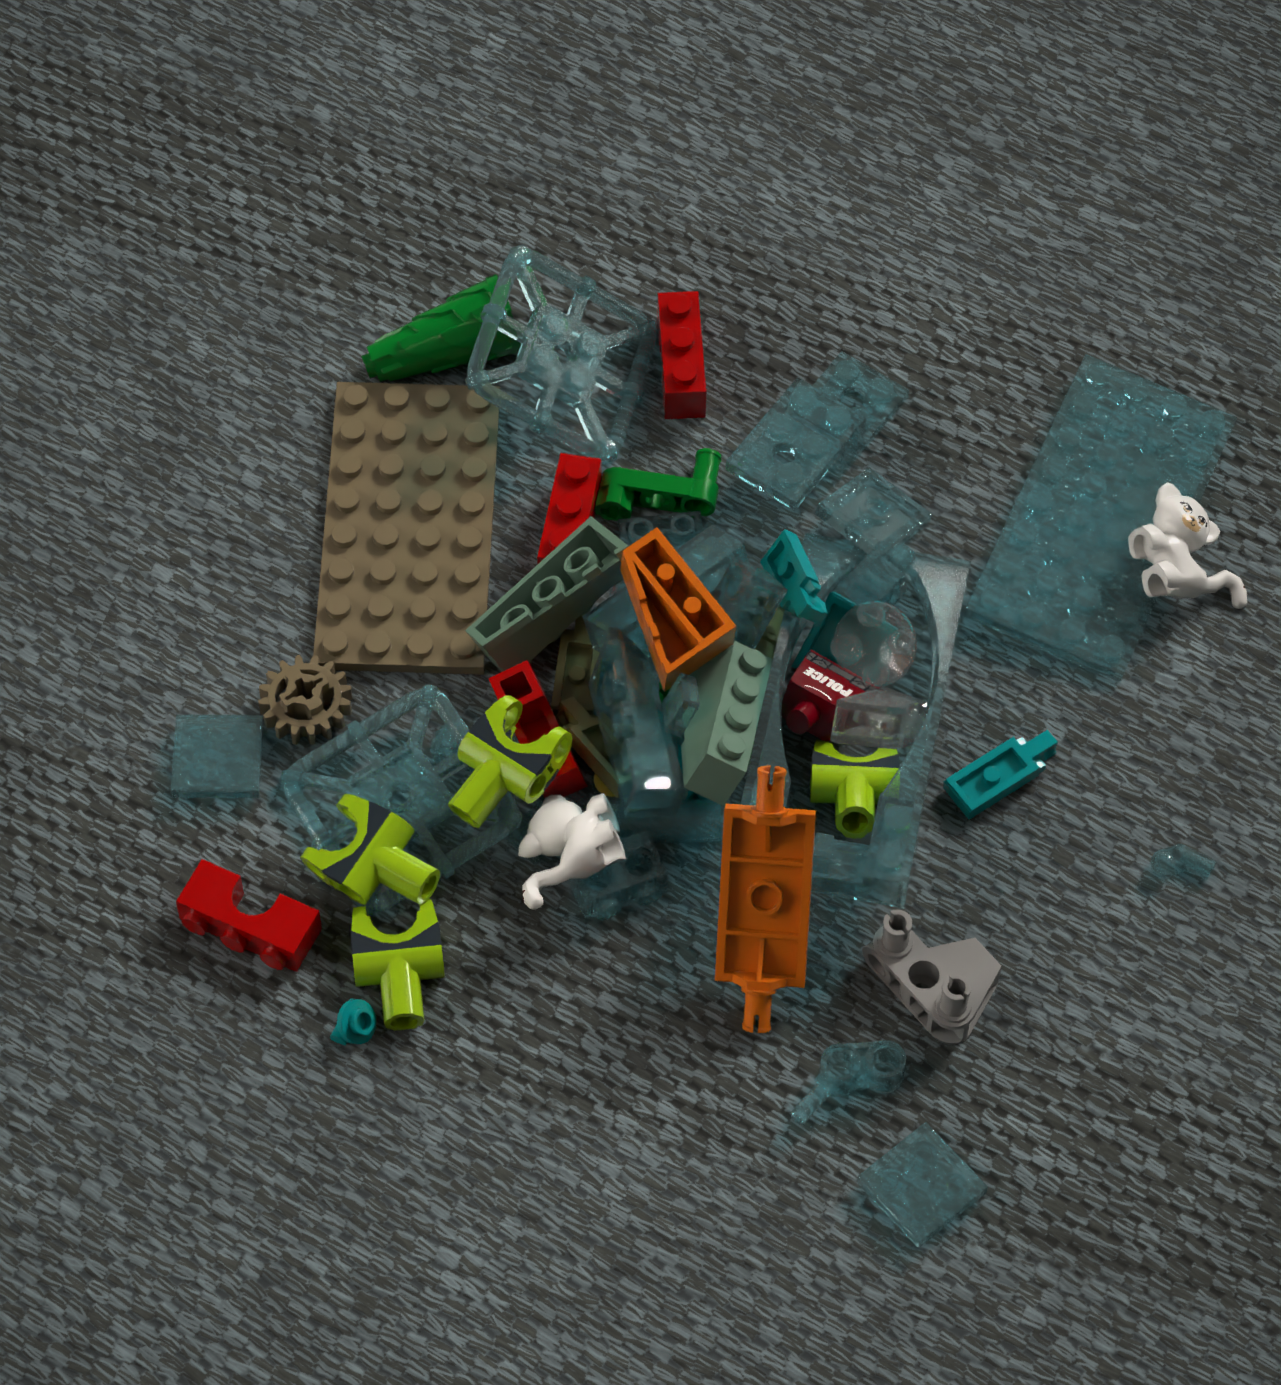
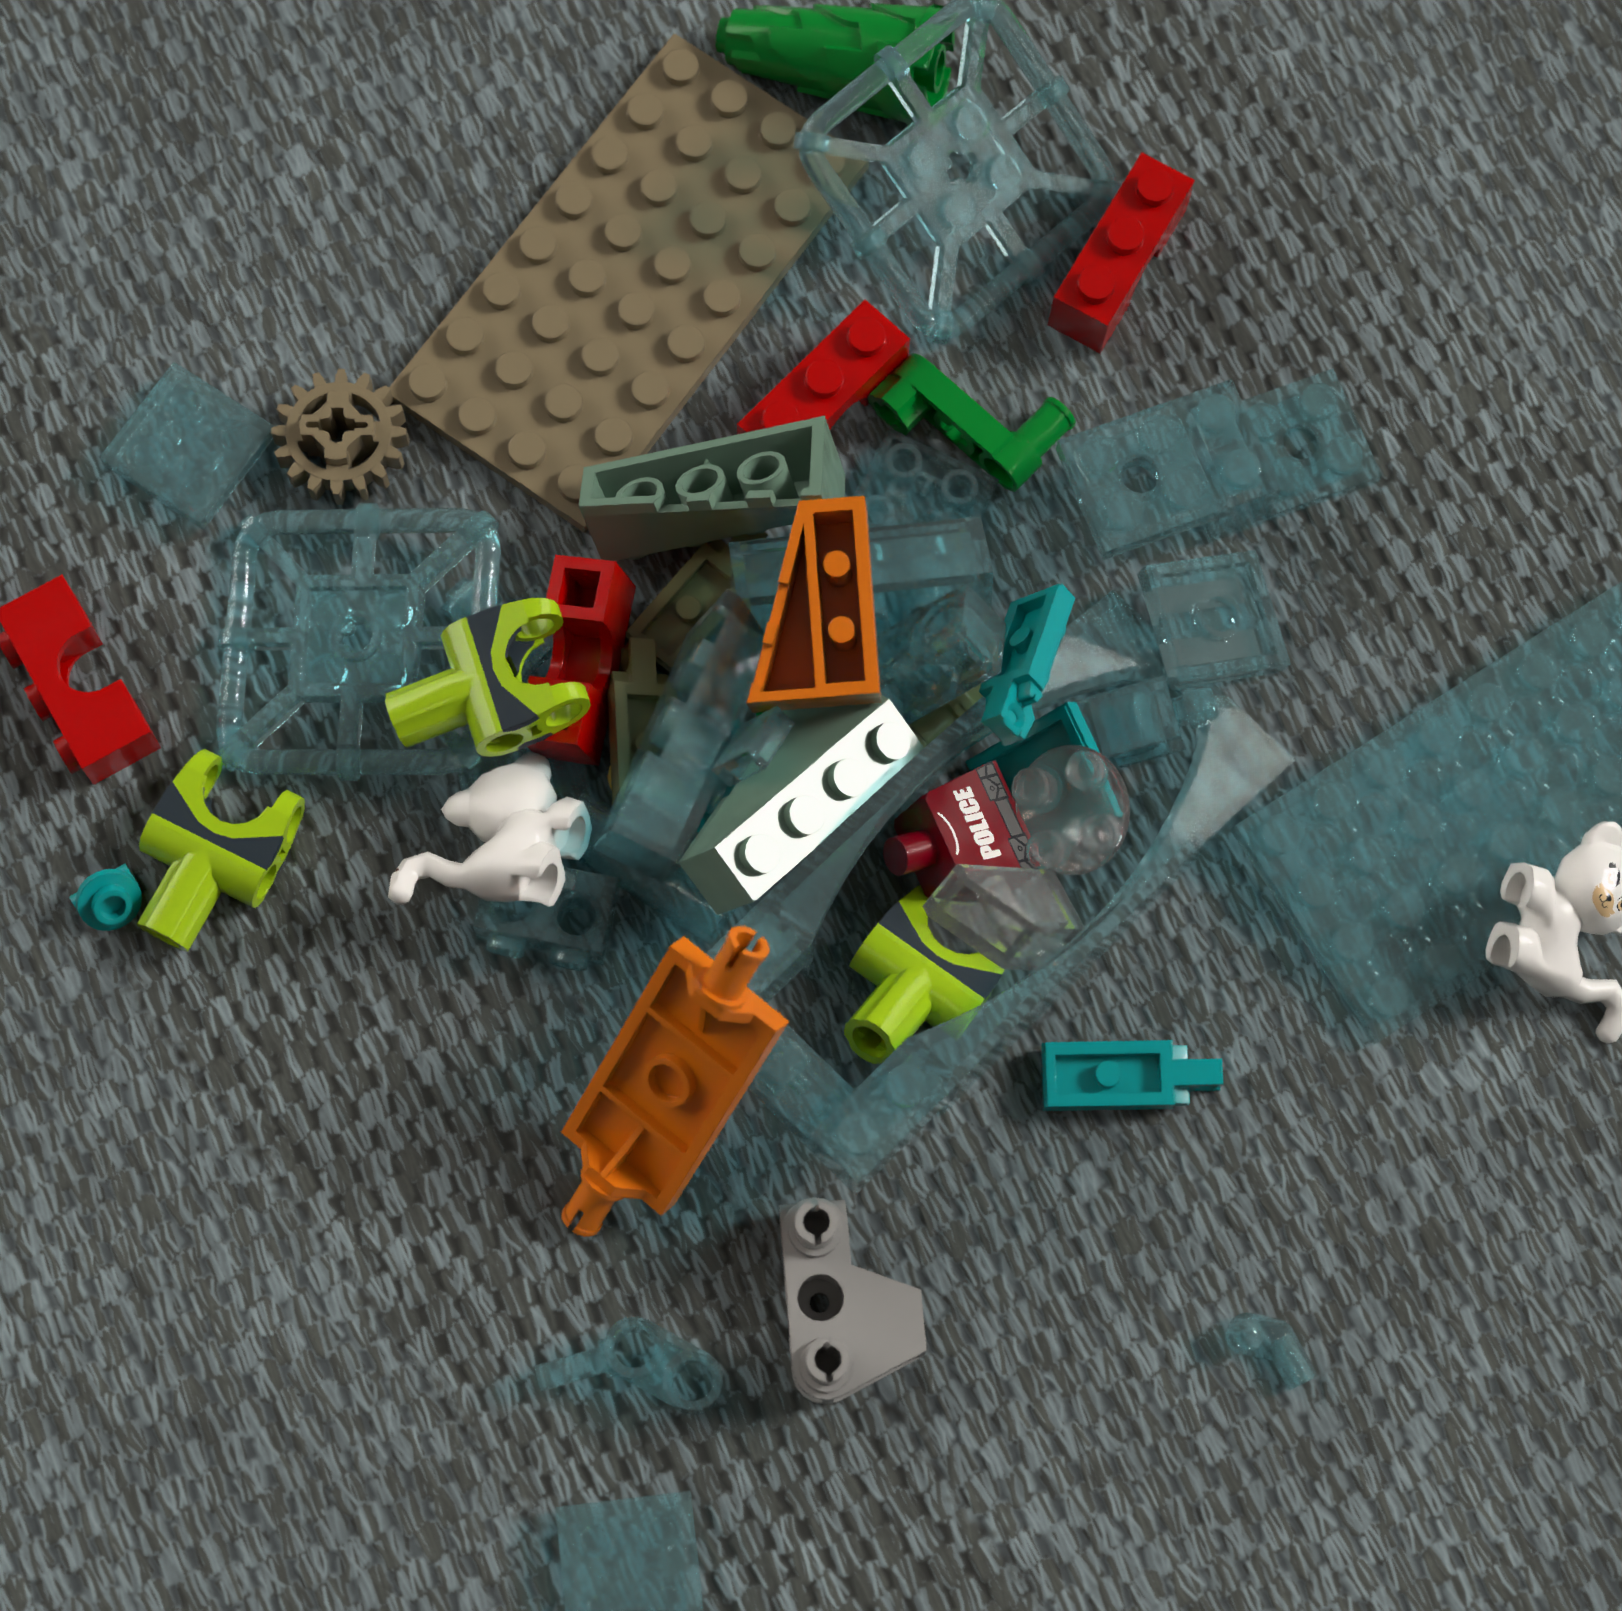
camera: 30 degrees right, 15 degrees up
(373, 856) = (259, 704): lime connector -> none

